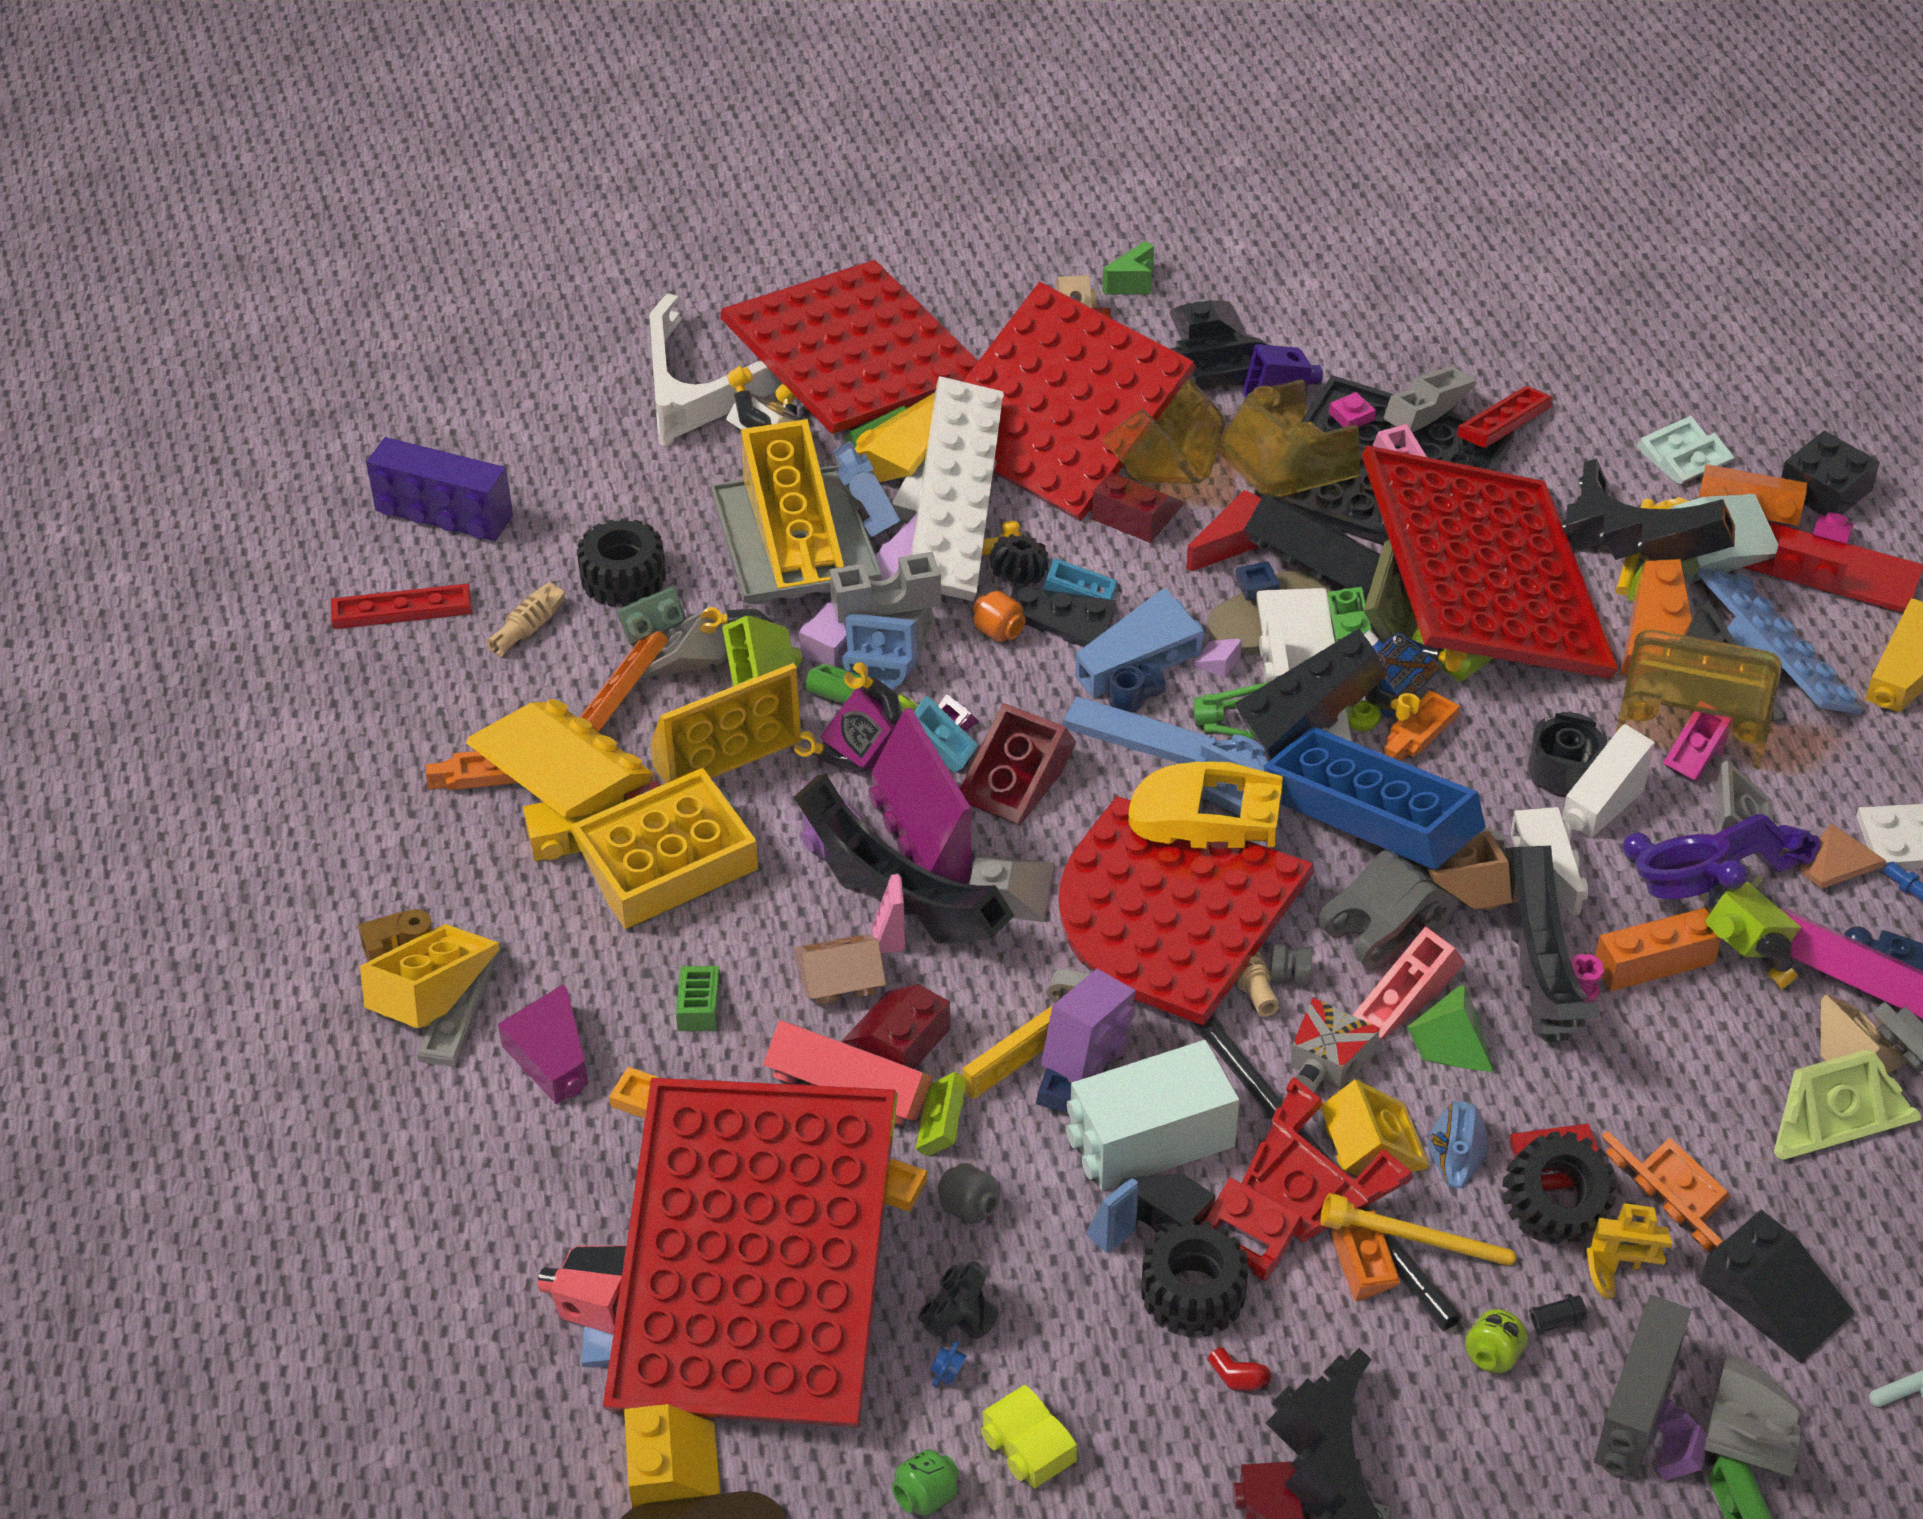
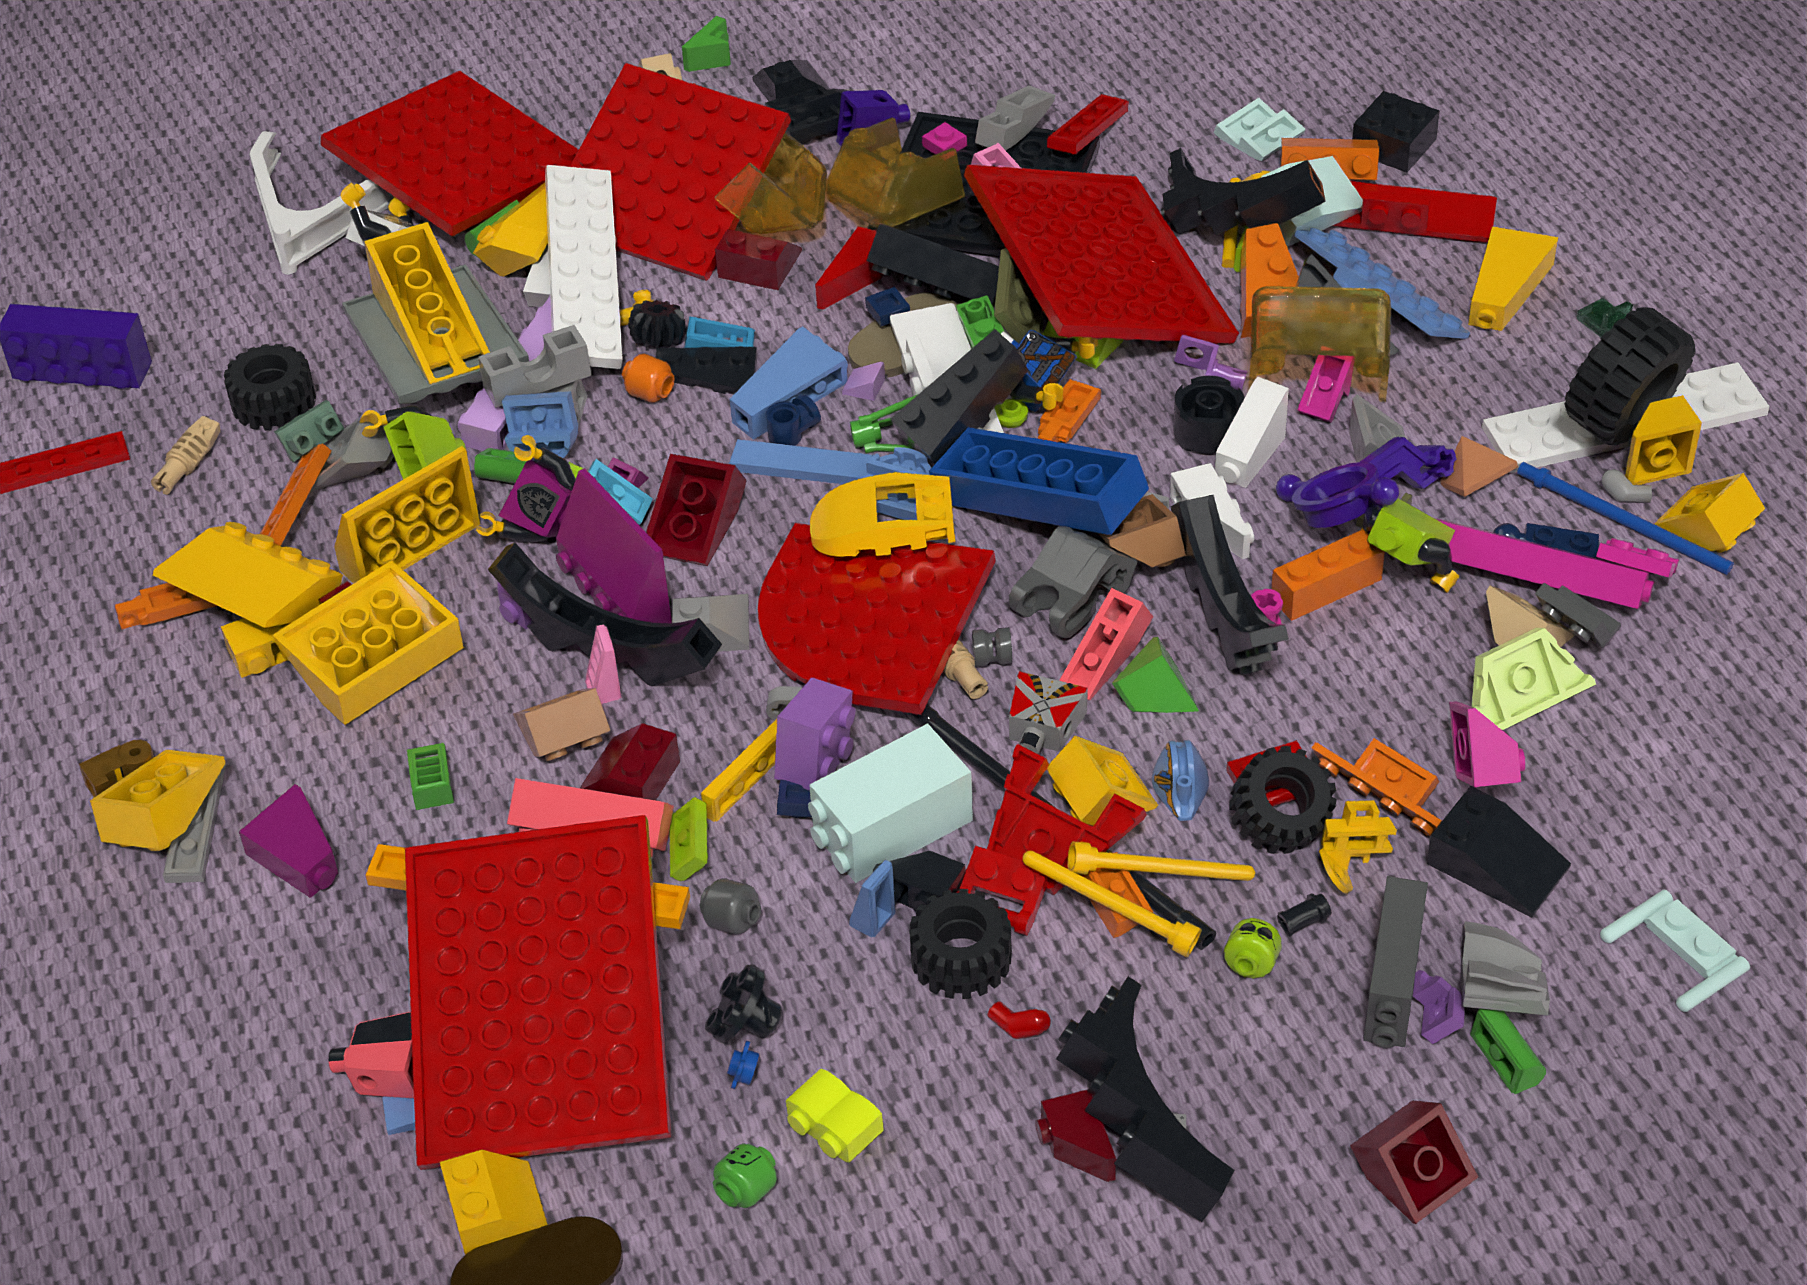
camera: 10 degrees left, 0 degrees up
(864, 486) = (496, 277): medium blue hips -> none
(1422, 1313) = (1181, 936): none -> yellow piece
(1599, 713) = (1208, 361): none -> medium lavender bracket
(1781, 1175) = (1482, 750): none -> dark pink slope
(1834, 527) = (1409, 176): dark pink plate -> none

